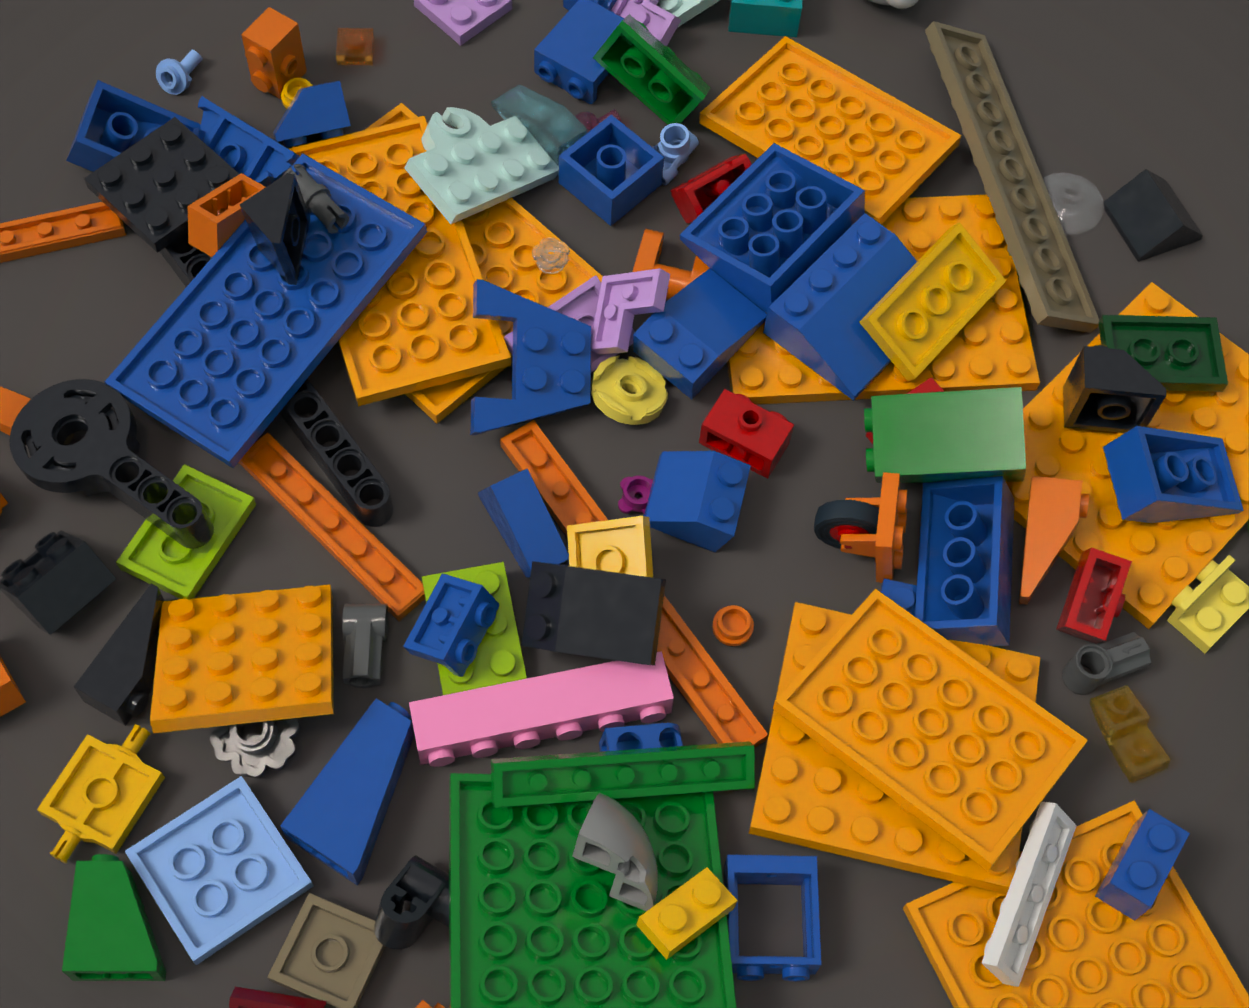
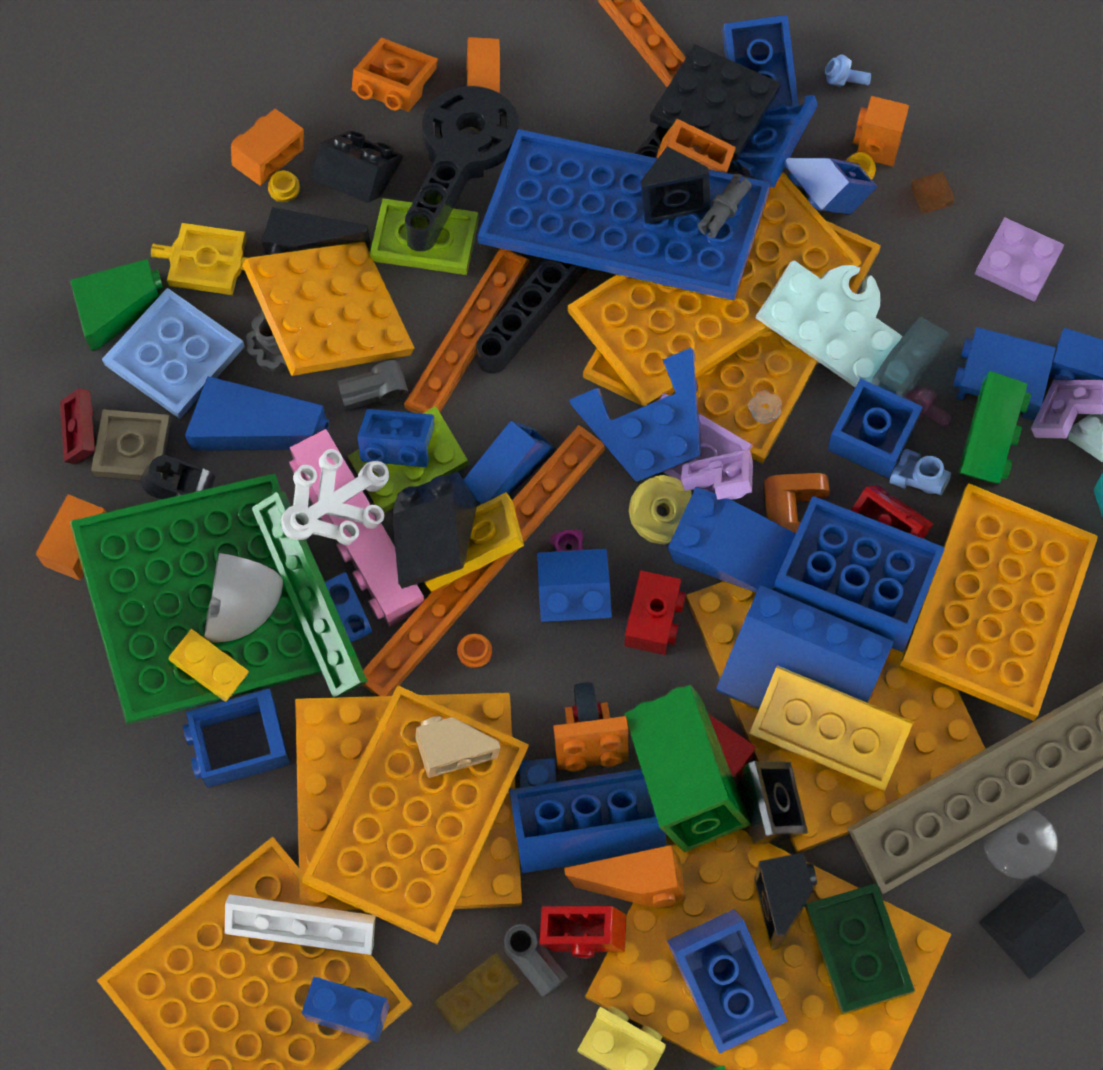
camera: 80 degrees right, 5 degrees up
(39, 675) = (283, 186): none -> yellow plate
(542, 746) = (332, 502): none -> white plant
(871, 658) = (452, 745): none -> tan slope
(983, 372) = (771, 801): none -> black slope

